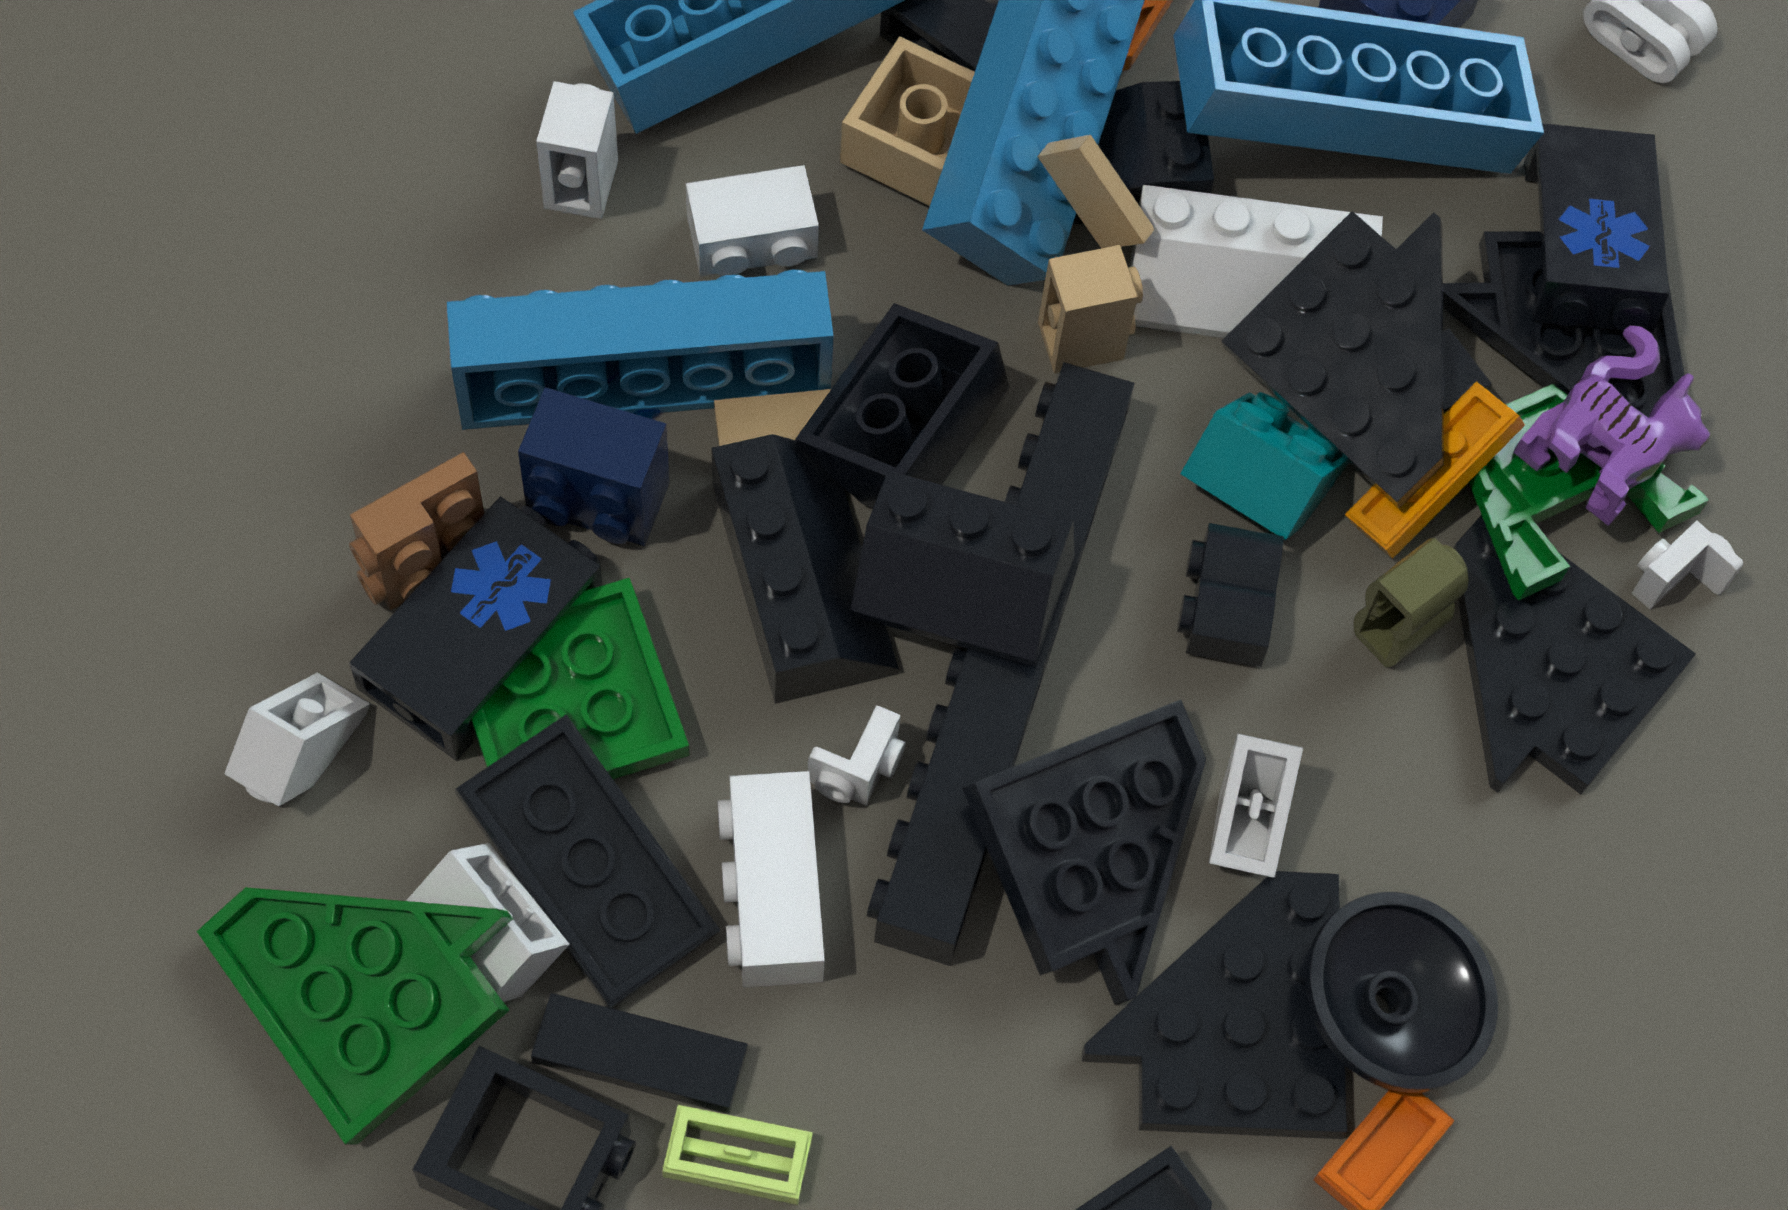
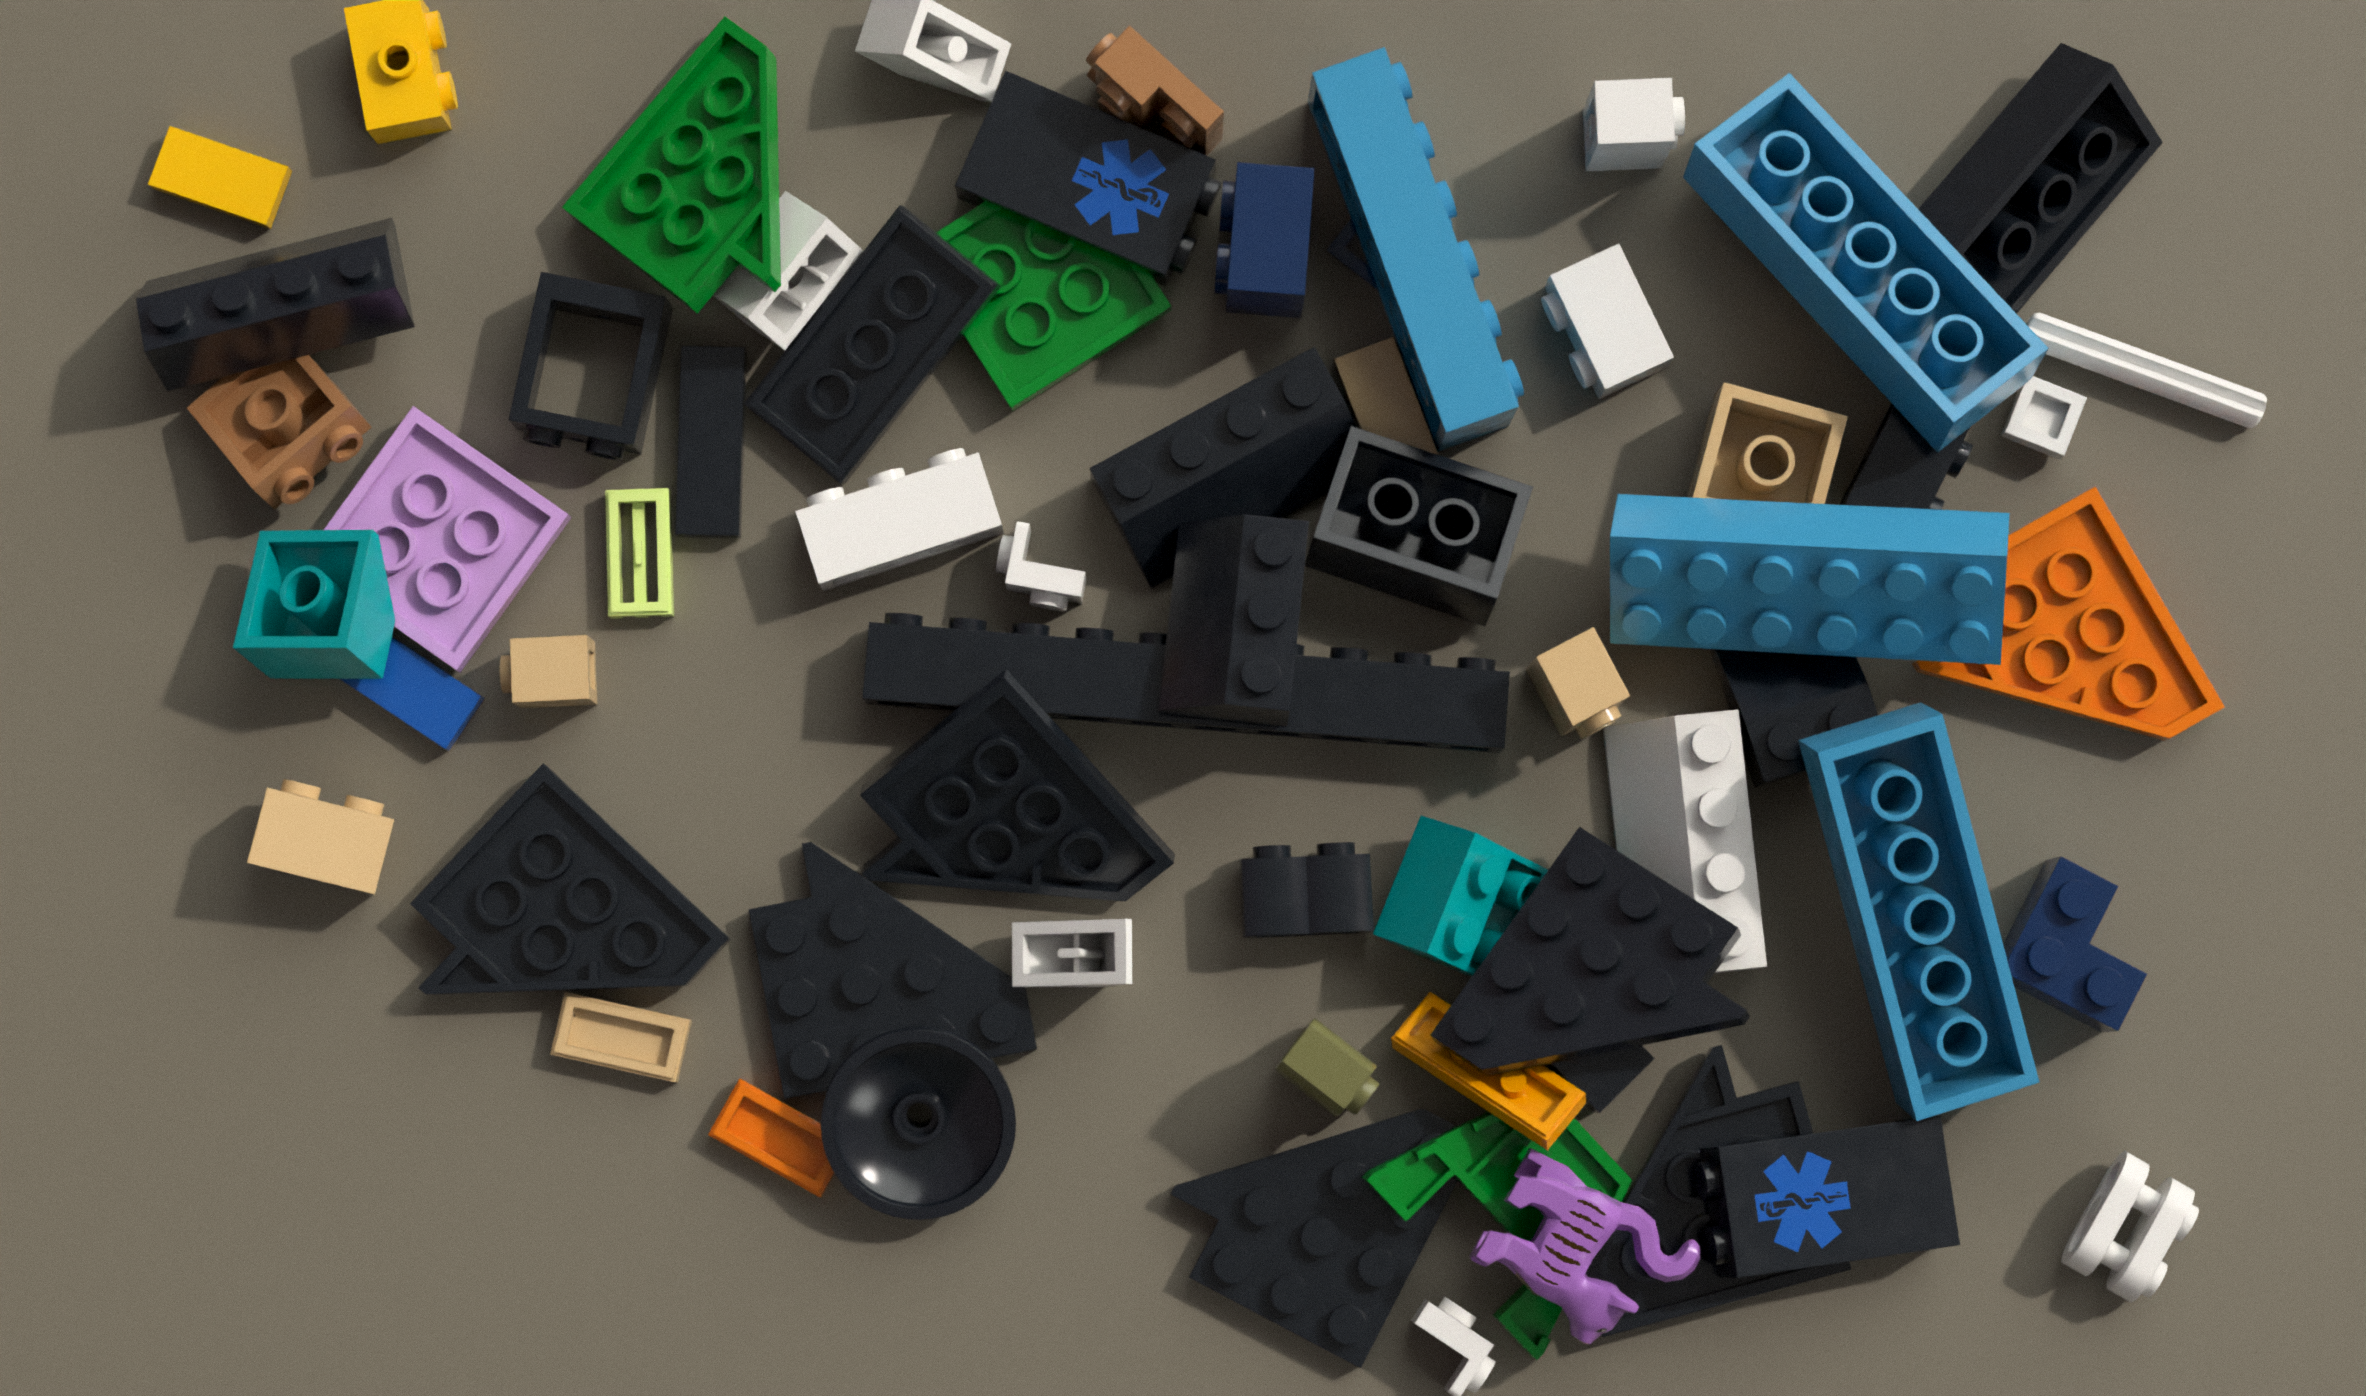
camera: 80 degrees right, 20 degrees up
(1096, 192) = (1694, 659): tan tile -> none

